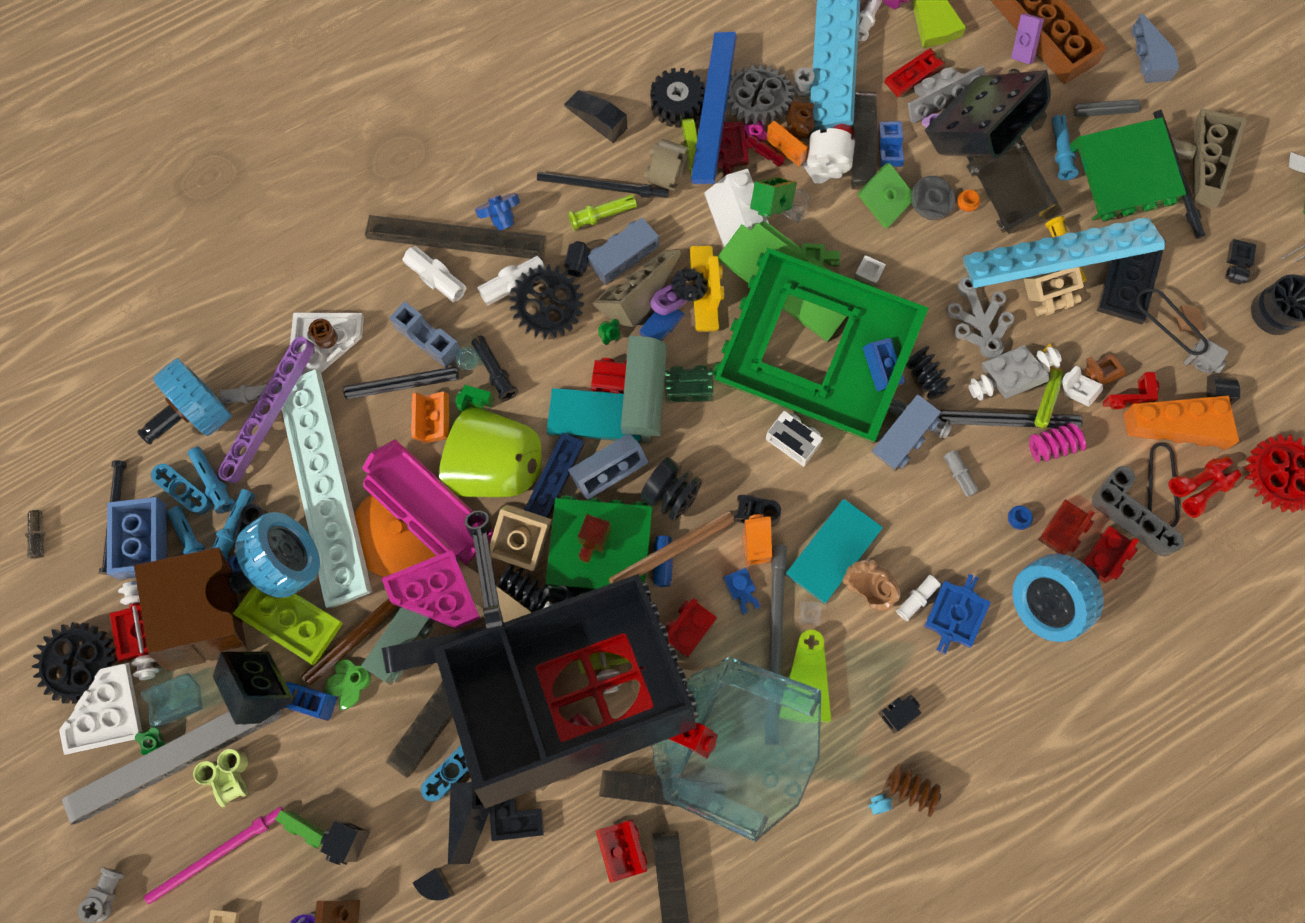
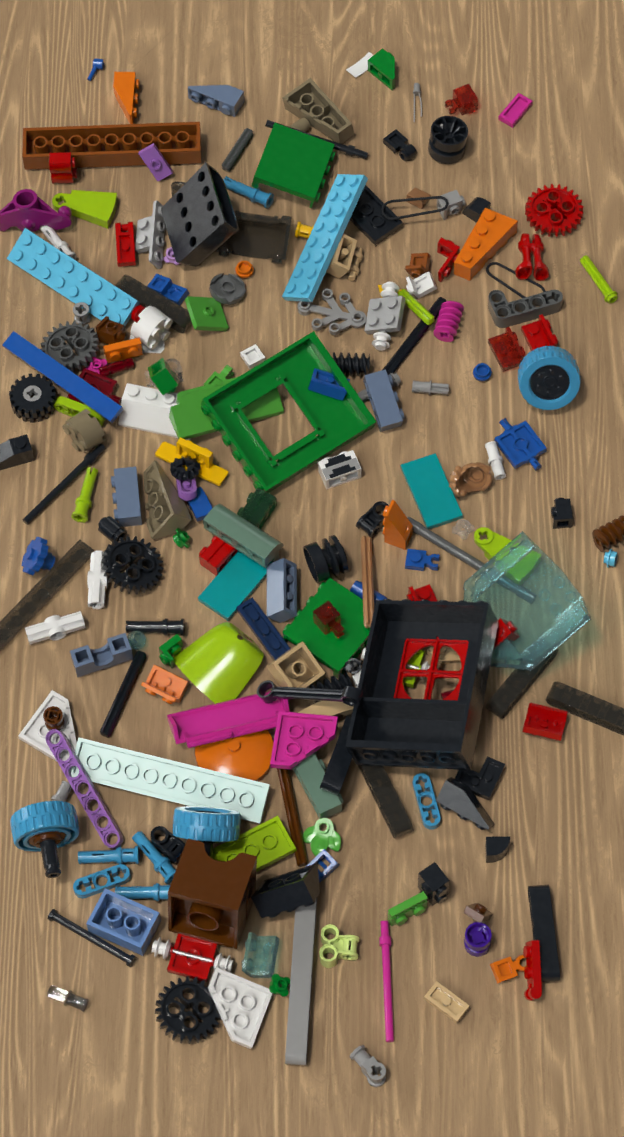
camera: 60 degrees left, 10 degrees down
(1223, 602) = (610, 295): none -> lime axle

